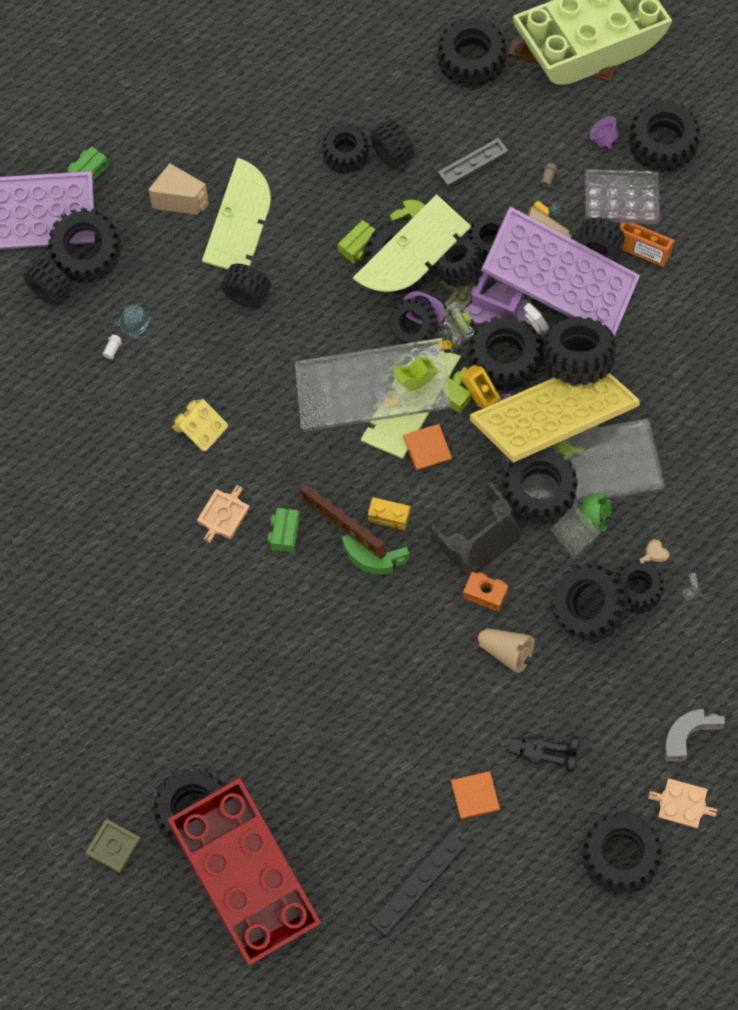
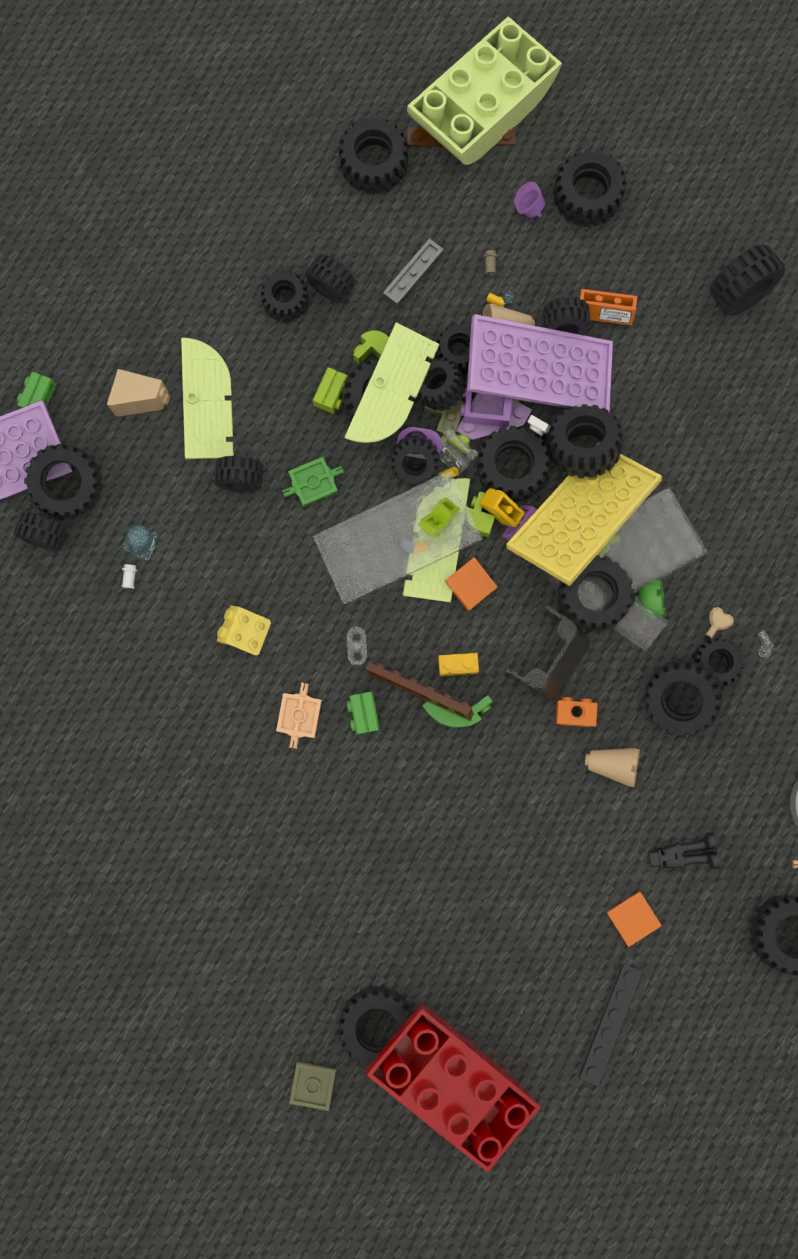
camera: 20 degrees left, 15 degrees up
(300, 471) = (356, 646): none -> clear plate
(312, 315) = (313, 481): none -> bright green plate
(622, 196) = (570, 264): clear plate -> none

